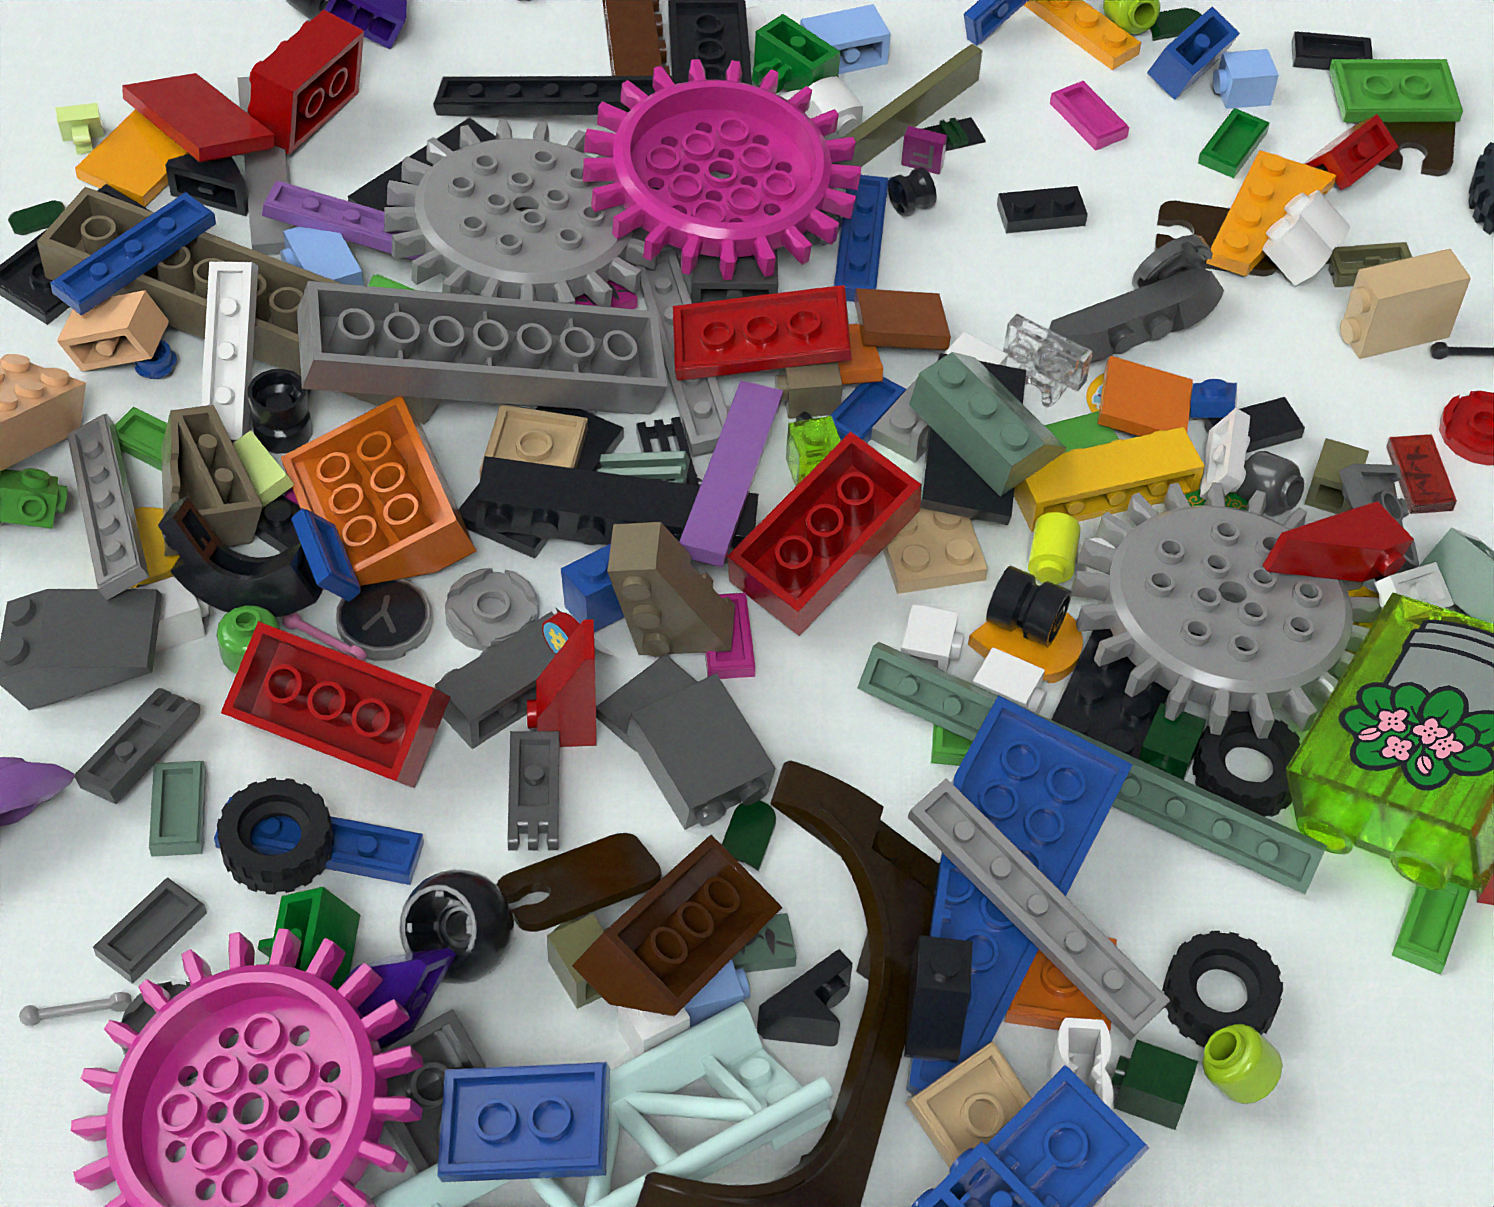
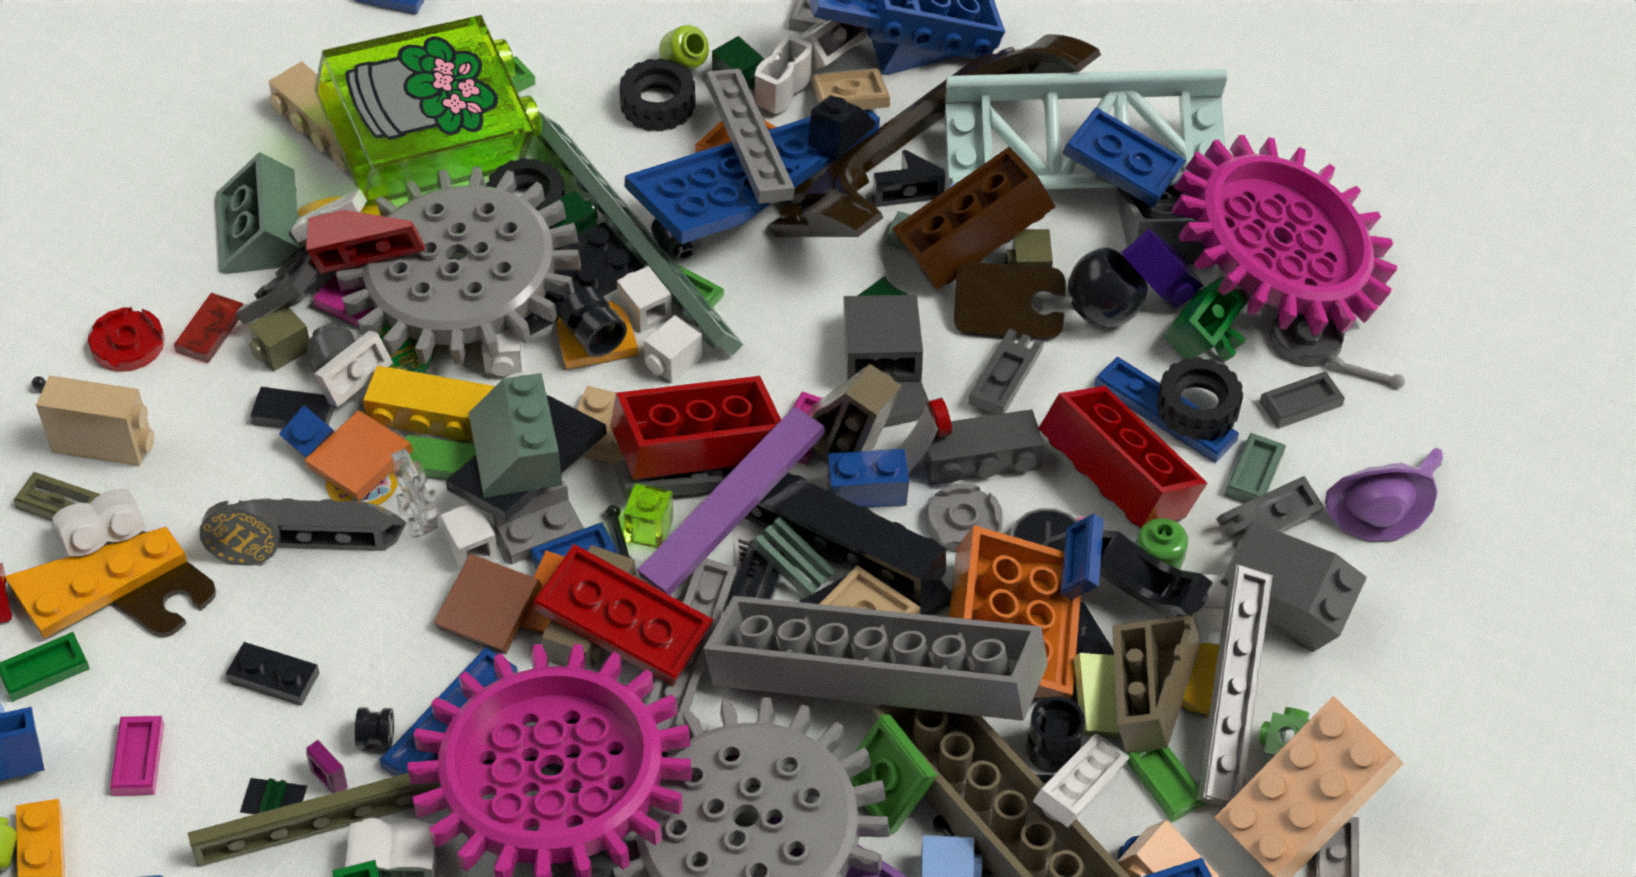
camera: 150 degrees left, 0 degrees up
(567, 691) = (956, 379): red slope -> none
(1054, 547) = (534, 362): neon yellow brick -> none

